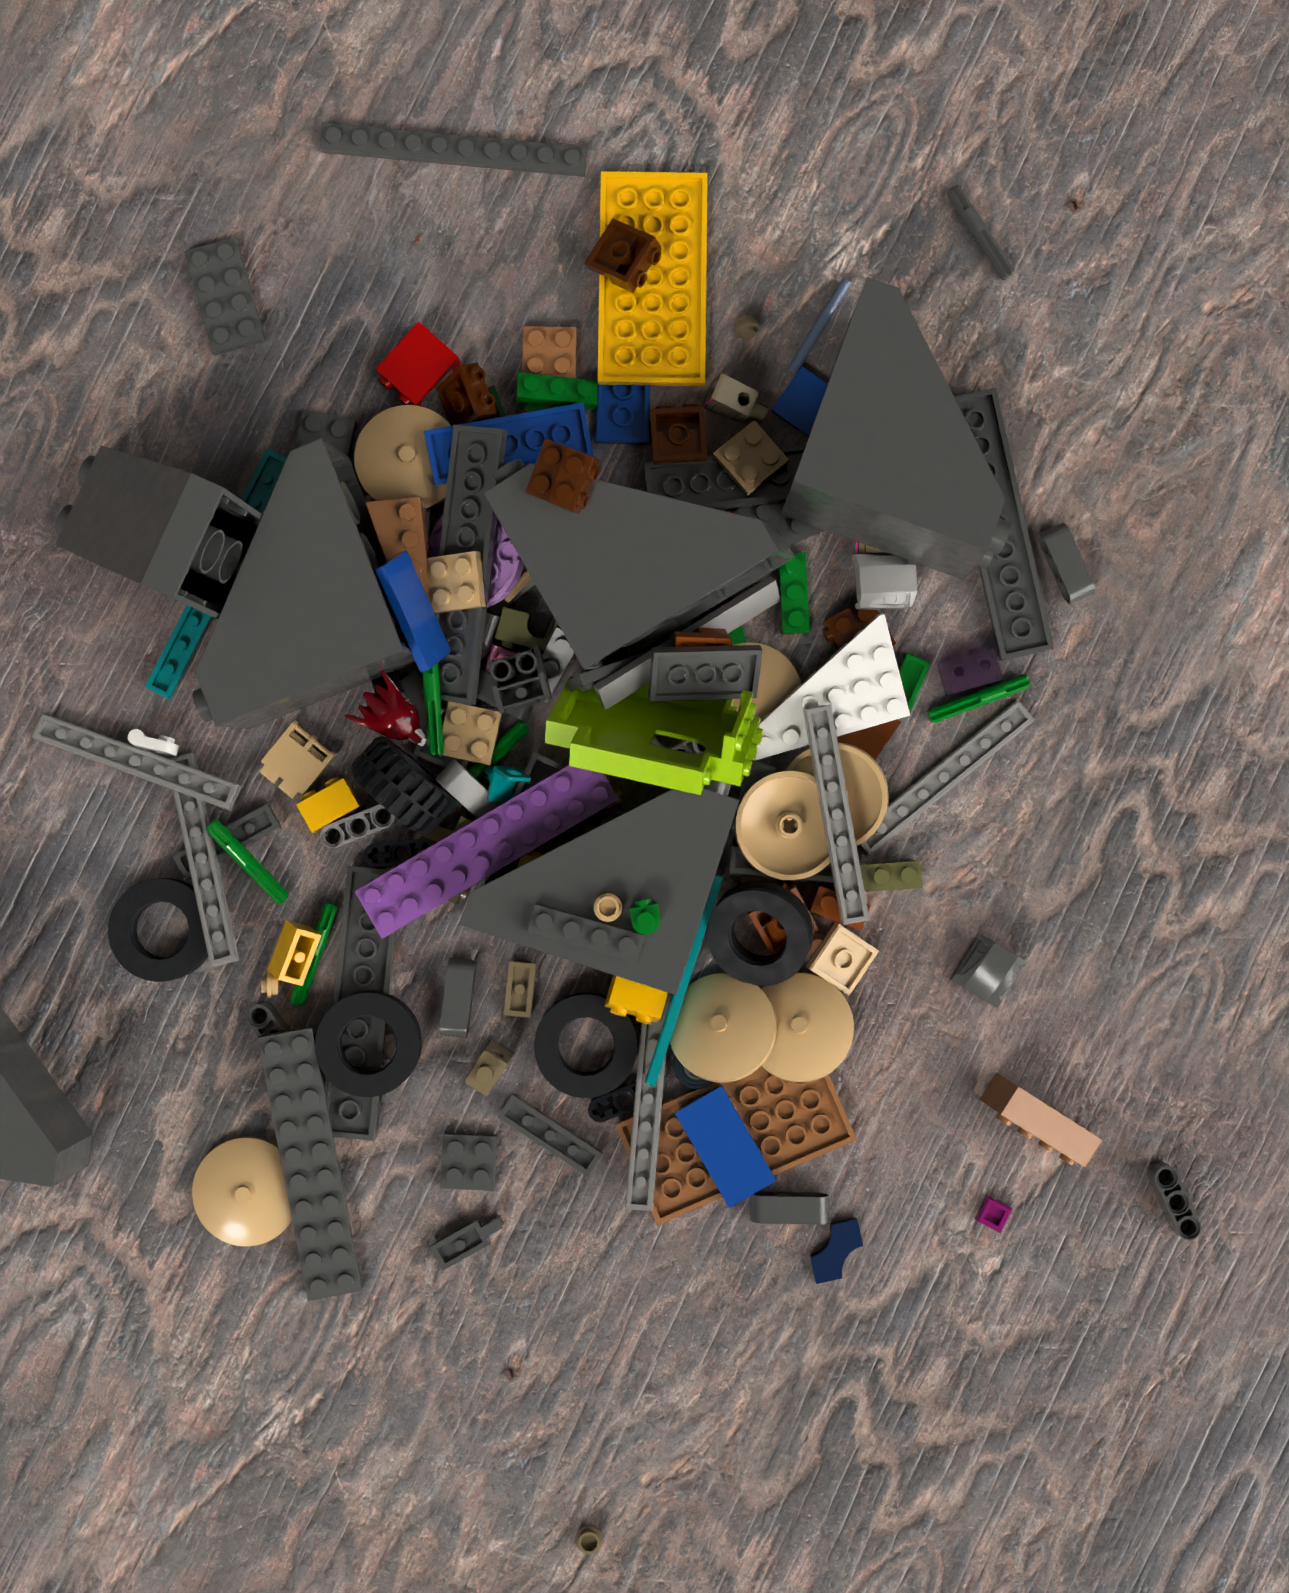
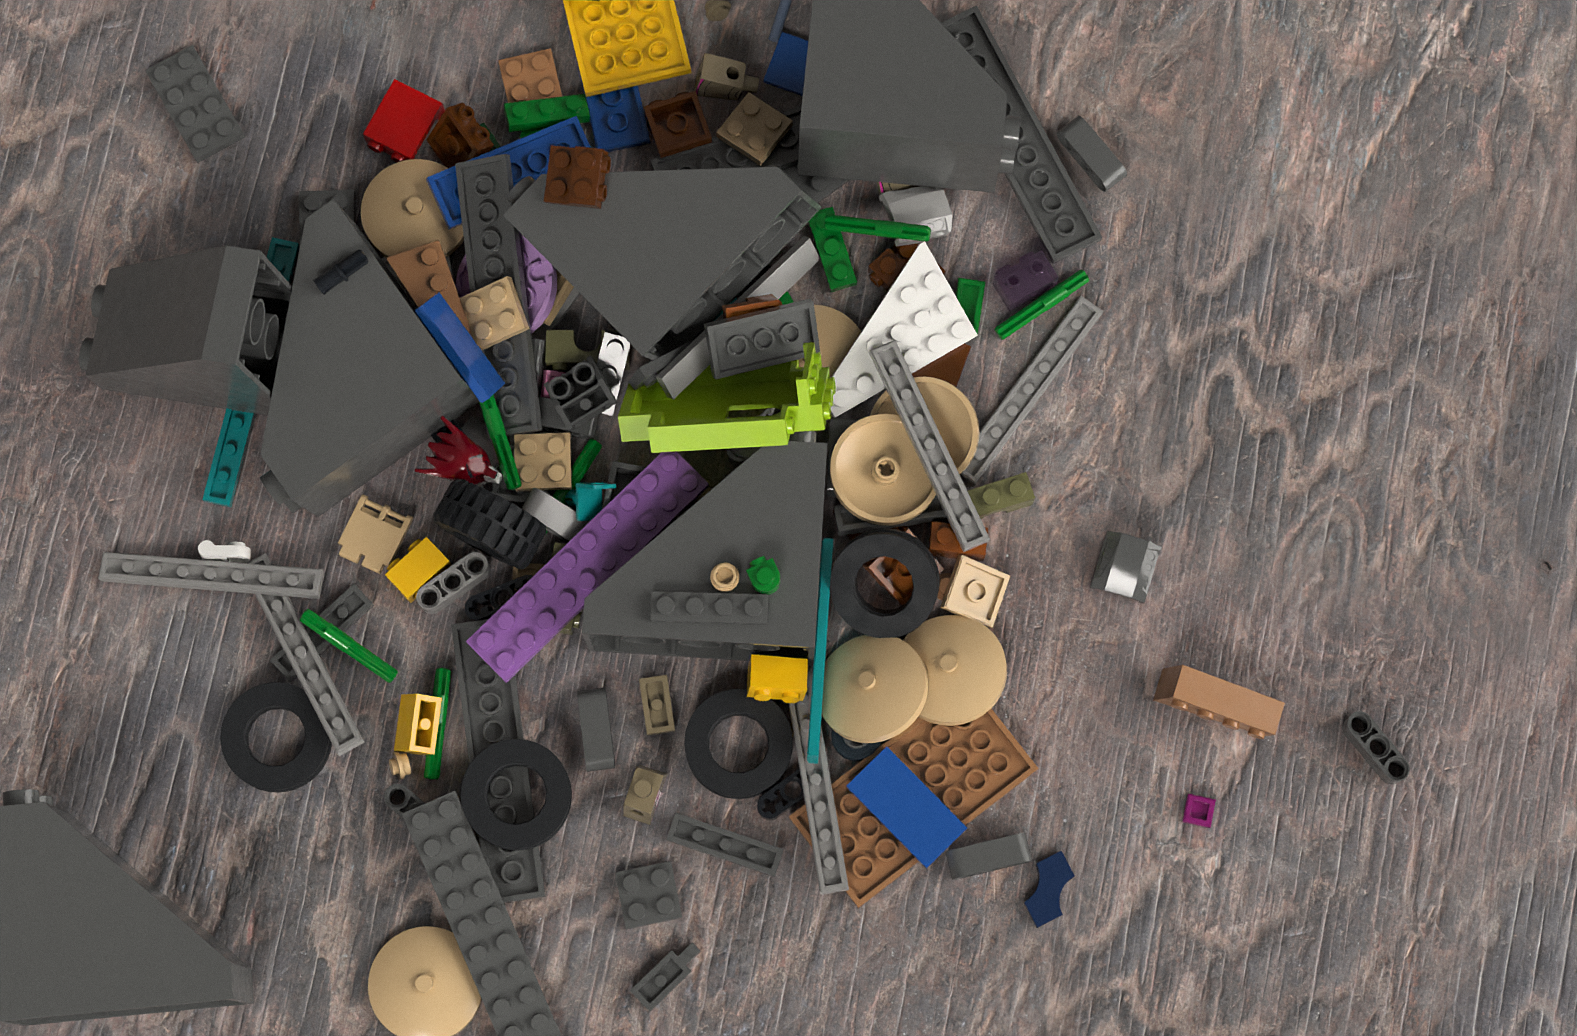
camera: 15 degrees left, 10 degrees down
(311, 514) = (341, 271): none -> black axle
(843, 588) = (877, 227): none -> green axle

